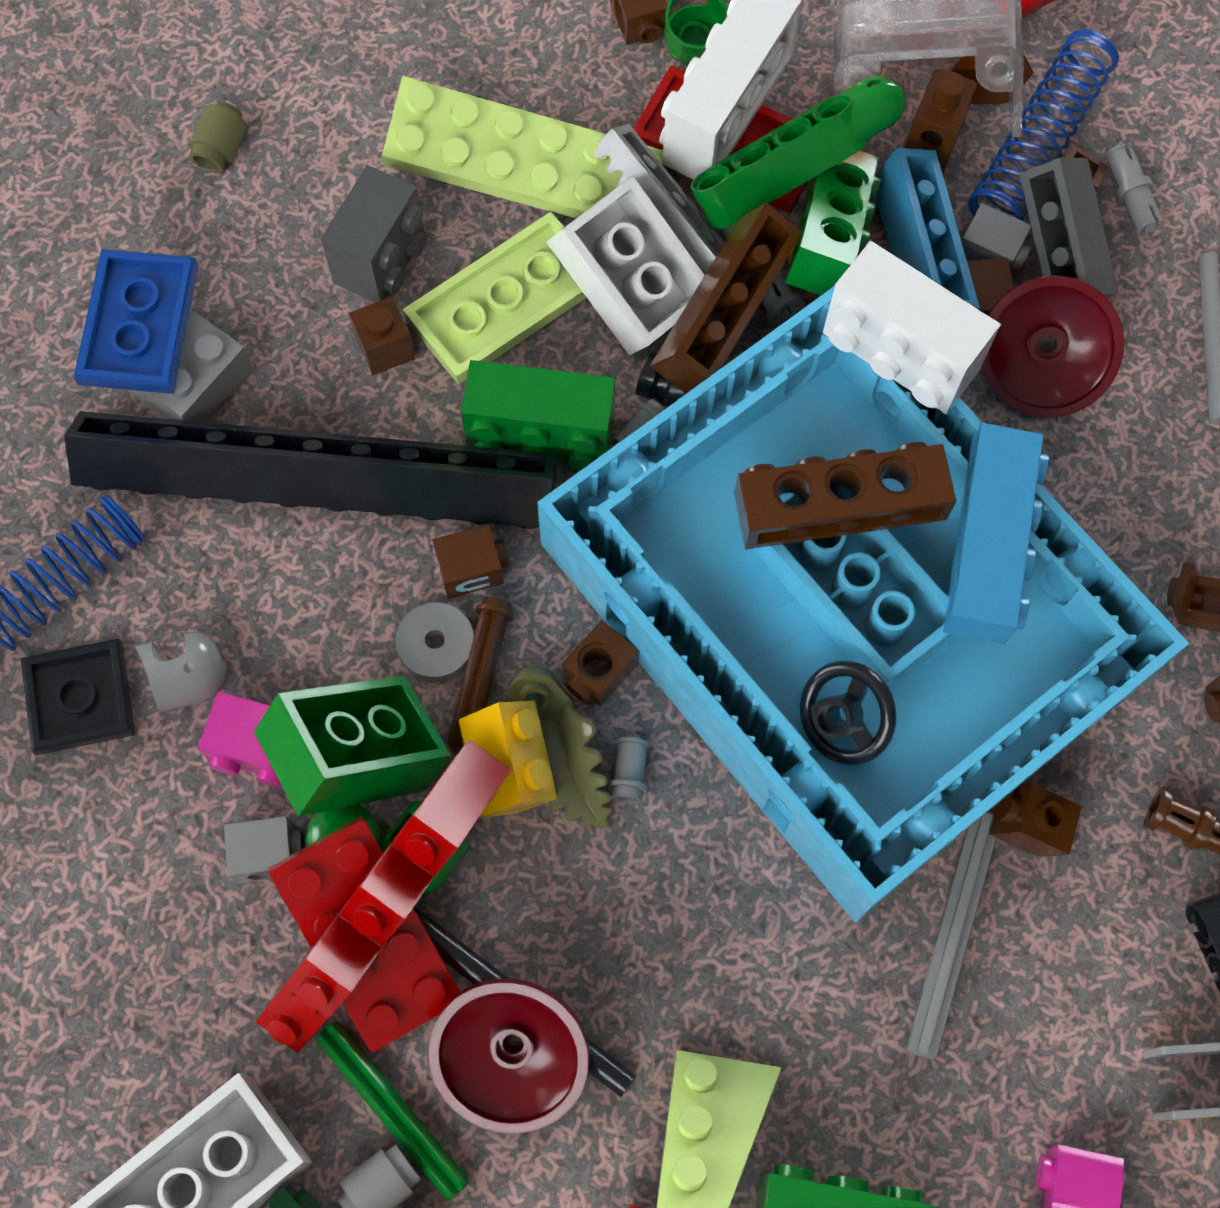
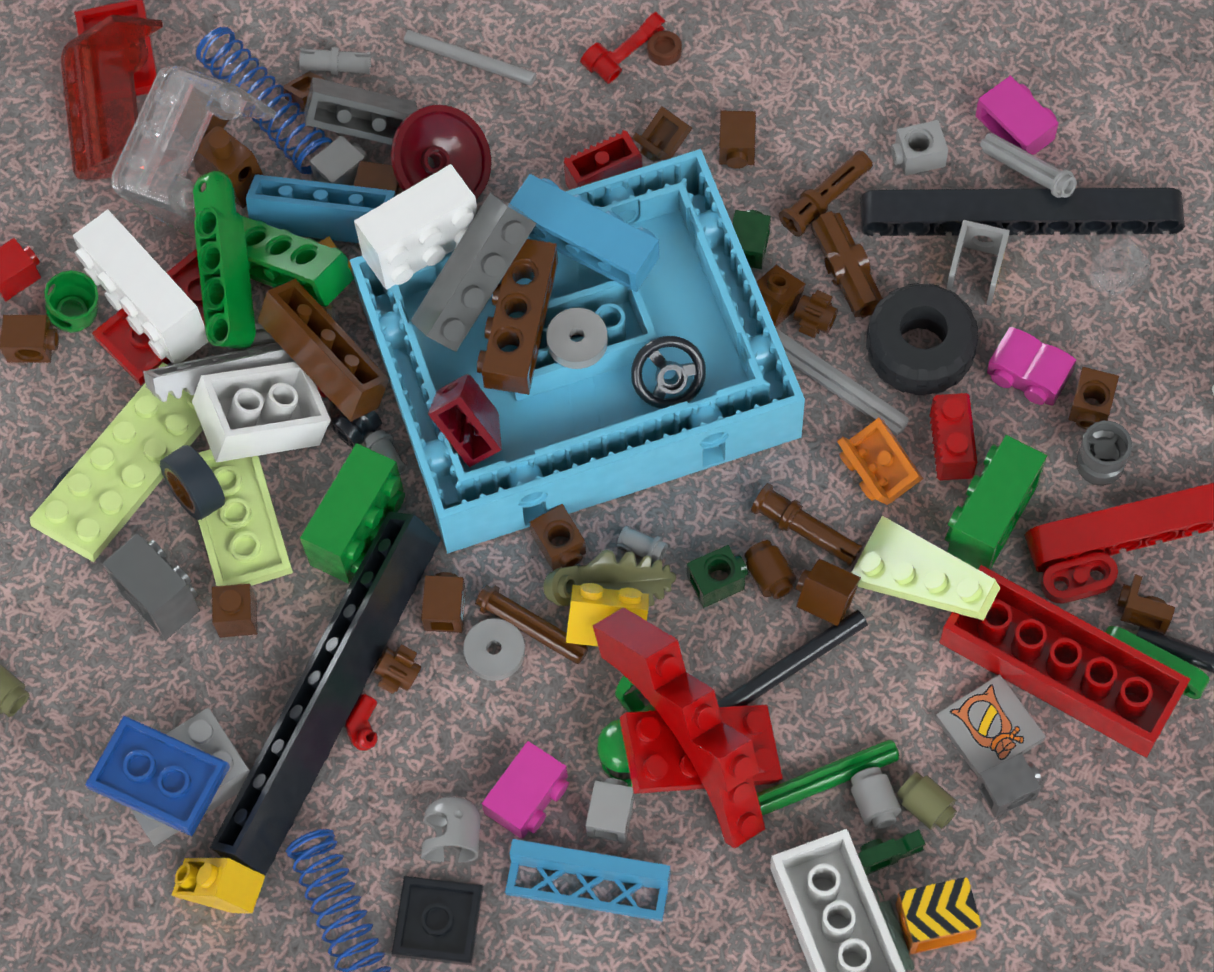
camera: 65 degrees left, 5 degrees down
(40, 440) = (218, 884): none -> yellow slope
(185, 853) = (590, 865): none -> dark azure fence
(290, 523) = (358, 726): none -> red arm
(350, 744) = (562, 712): green brick -> none
(366, 538) = (397, 669): none -> reddish brown gear
(503, 1083) = (836, 675): dark red dish -> none
(508, 224) = (192, 482): none -> black wheel
(614, 854) = (710, 590): none -> dark green brick
(641, 1027) = (826, 591): none -> reddish brown brick
(649, 942) = (769, 569): none -> reddish brown brick
(682, 486) = (462, 413): none -> dark red torso
(735, 945) = (791, 516): none -> reddish brown pin
(848, 557) = (577, 322): none -> light grey piece
(853, 1038) = (879, 462): none -> orange bracket
(877, 416) = (473, 272): none -> dark grey brick
(929, 1129) = (953, 436): none -> red brick
(1035, 883) = (815, 314): none -> reddish brown gear
(1106, 1032) = (914, 368): none -> black tyre
(1109, 759) = (753, 234): none -> dark green brick
(1127, 902) = (846, 263): none -> reddish brown piece
(1130, 539) = (602, 161): none -> red brick

